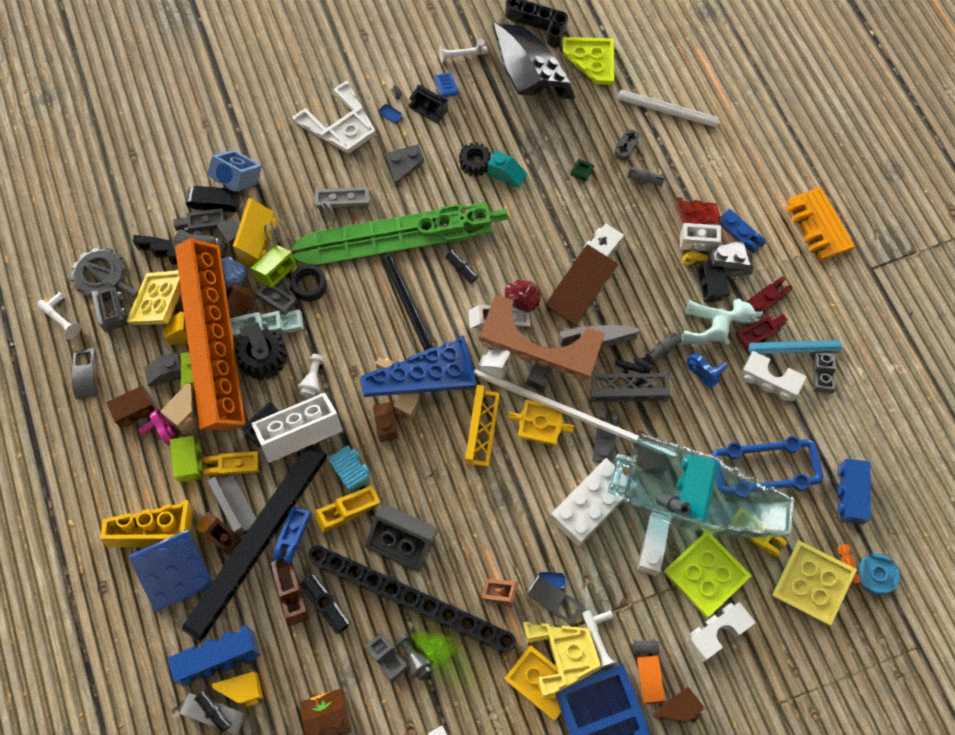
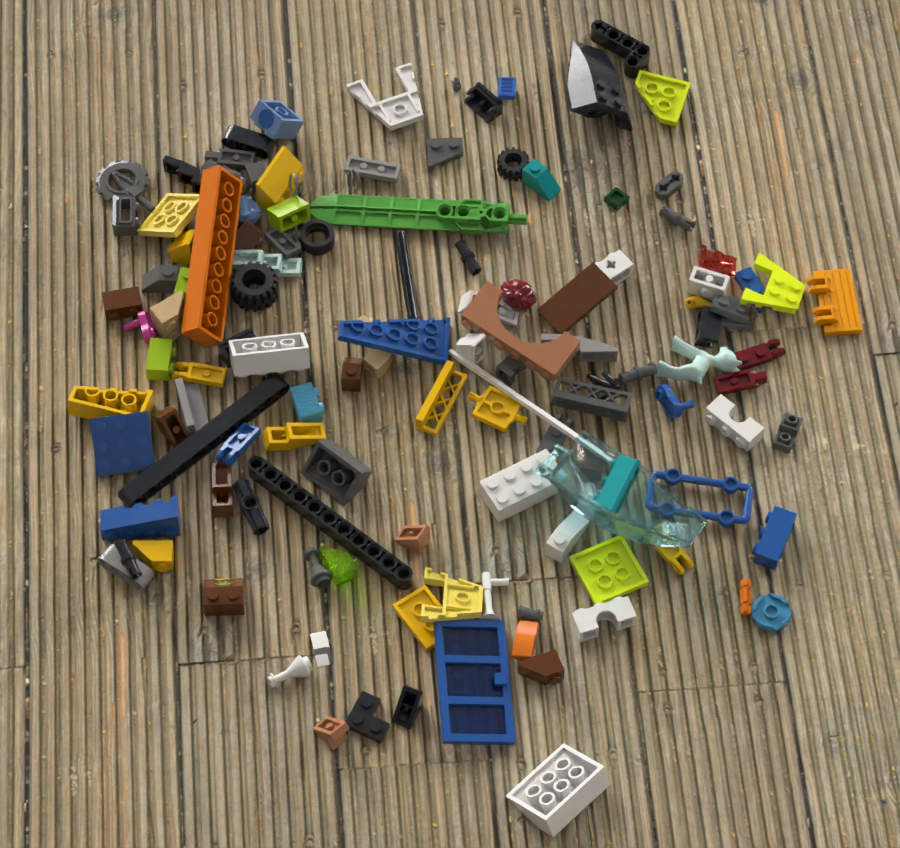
camera: 15 degrees right, 10 degrees down
(71, 330) = (85, 226): white piece -> none
(83, 376) = (85, 268): dark grey piece -> none
(258, 344) = (254, 270): dark grey leg -> none
(309, 385) = (292, 323): white piece -> none
(387, 657) = (293, 564): dark grey slope -> none
(390, 113) = (444, 103): blue piece -> none
(478, 50) = (551, 63): white piece -> none
(551, 597) = (457, 554): dark grey piece -> none
(555, 579) = (462, 542): blue piece -> none
(668, 108) = (723, 161): white axle -> none
(673, 504) = (592, 492): dark grey pin -> none
(769, 225) = (782, 290): none -> neon yellow wing
(795, 347) = (767, 403): medium azure axle -> none
(814, 583) = (705, 601): light yellow plate -> none

